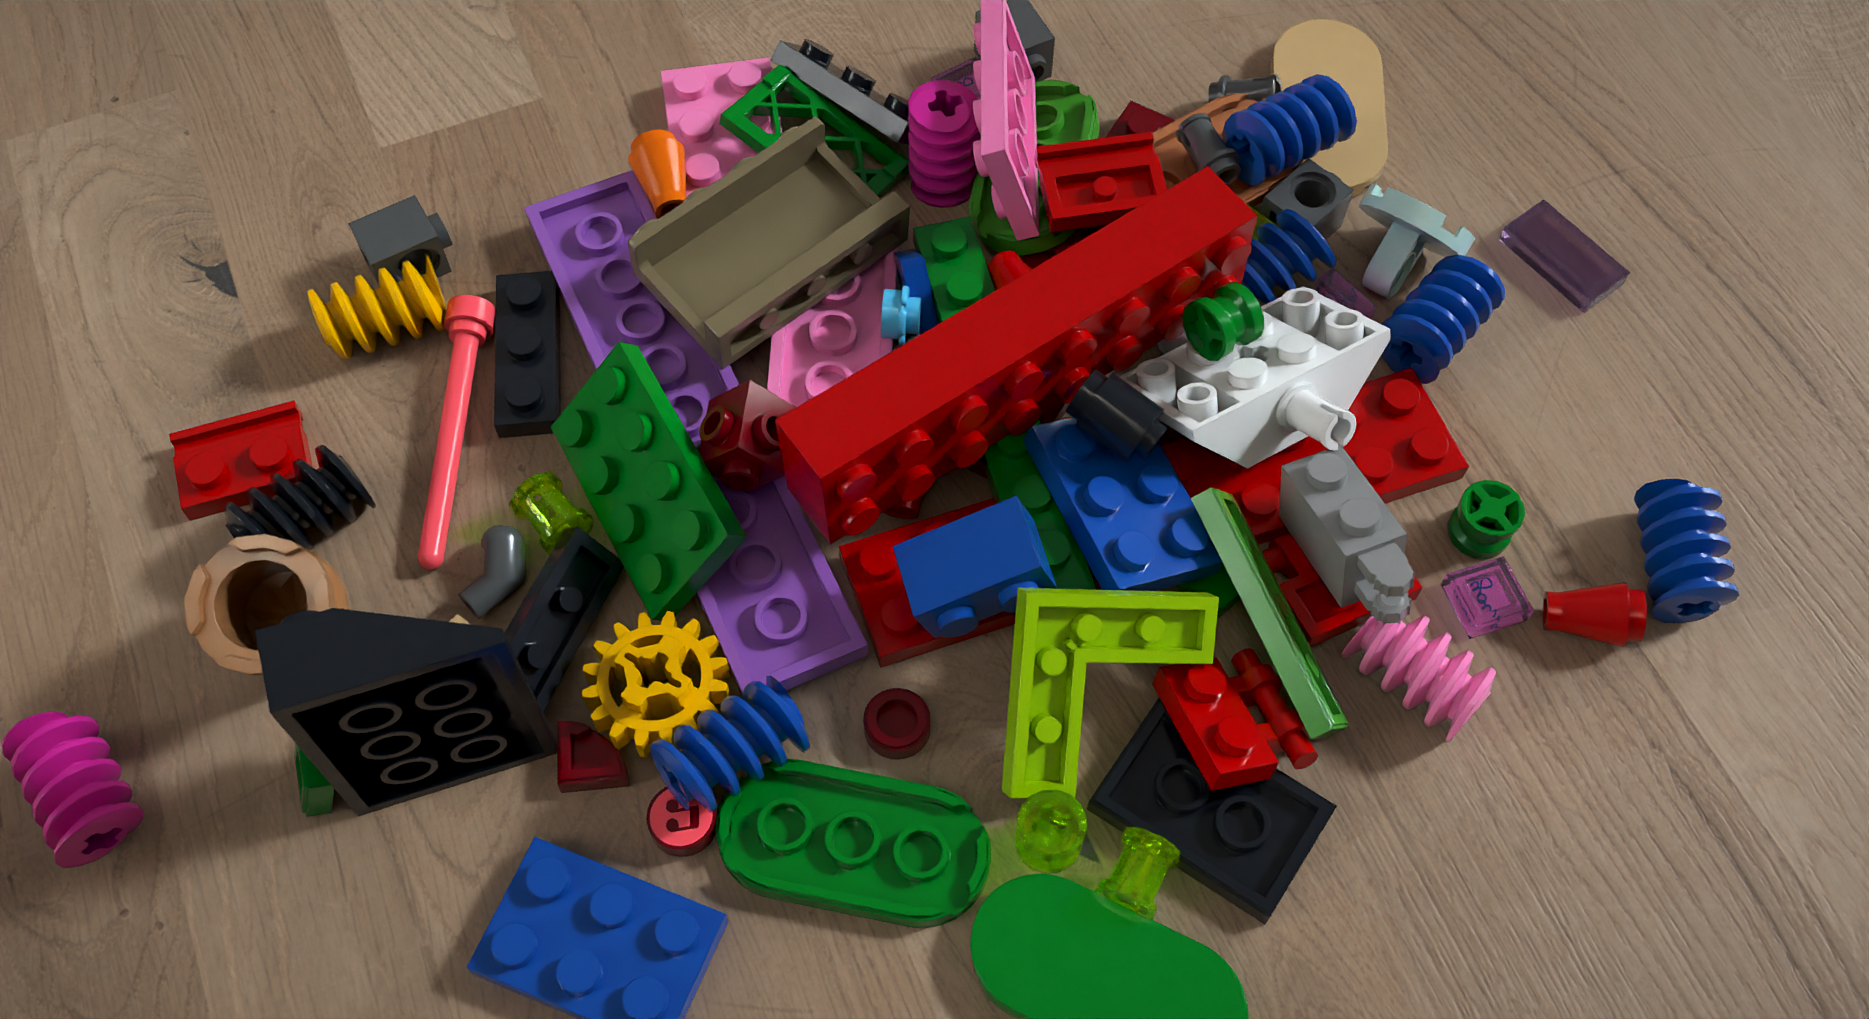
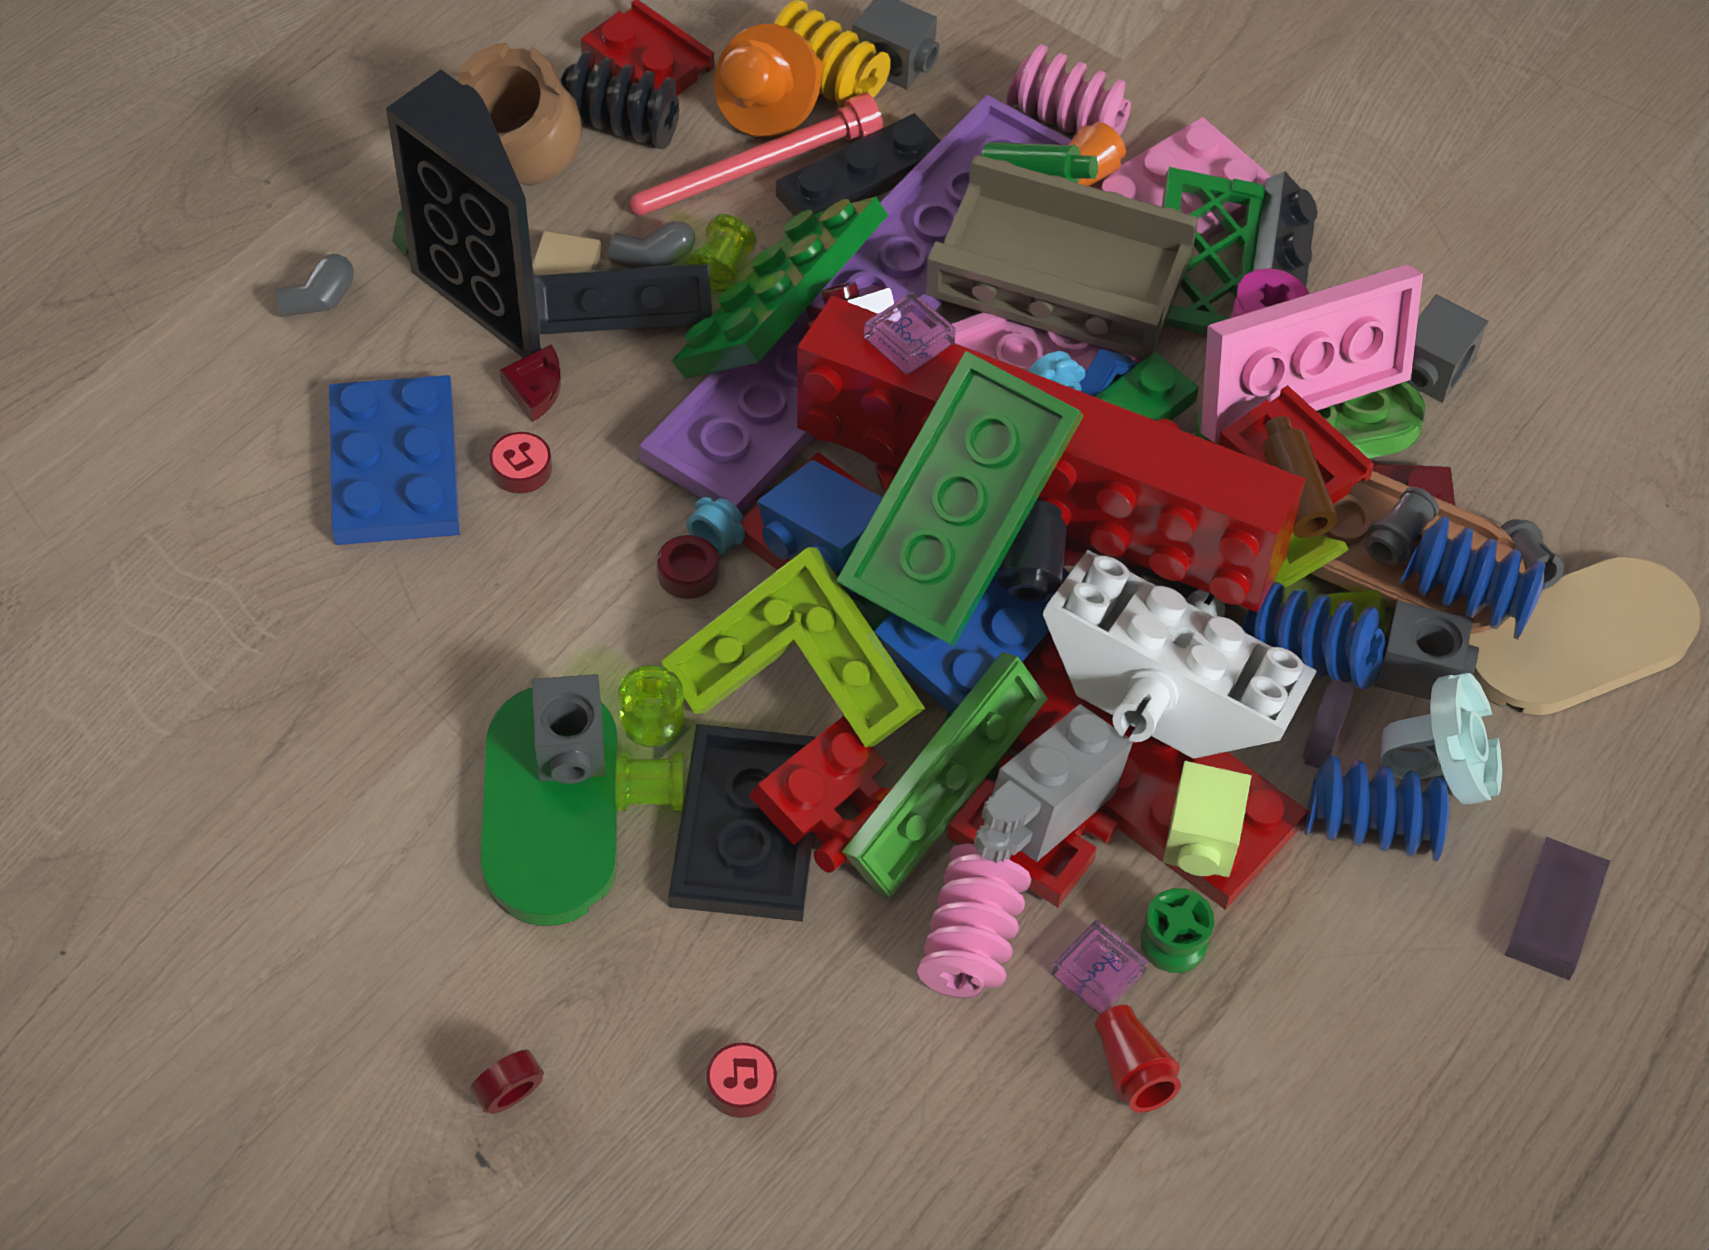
camera: 60 degrees right, 5 degrees down
(71, 785) = (330, 95): dark pink piece -> none
(328, 918) = (321, 290): none -> dark grey arm
(376, 369) = (767, 80): none -> orange plate
(571, 146) = (1065, 95): none -> bright pink piece
(651, 657) = (616, 387): yellow gear -> none
(655, 198) = (1045, 158): none -> green cylinder
(730, 743) = (585, 451): blue piece -> none
(854, 844) = (568, 581): green tile -> none
(870, 672) = (717, 523): none -> medium azure plate
(871, 375) = (909, 332): none -> clear purple tile
(1052, 889) = (563, 706): none -> dark grey brick
(1070, 434) = (960, 498): none -> green plate
(1130, 180) = (1291, 451): none -> reddish brown cylinder
(1223, 321) = (1182, 585): green wheel -> none
(1421, 437) = (1207, 820): none -> yellowish green brick
(1488, 946) = (741, 1080): none -> tile
(1684, 550) = (1252, 1107): blue piece -> none

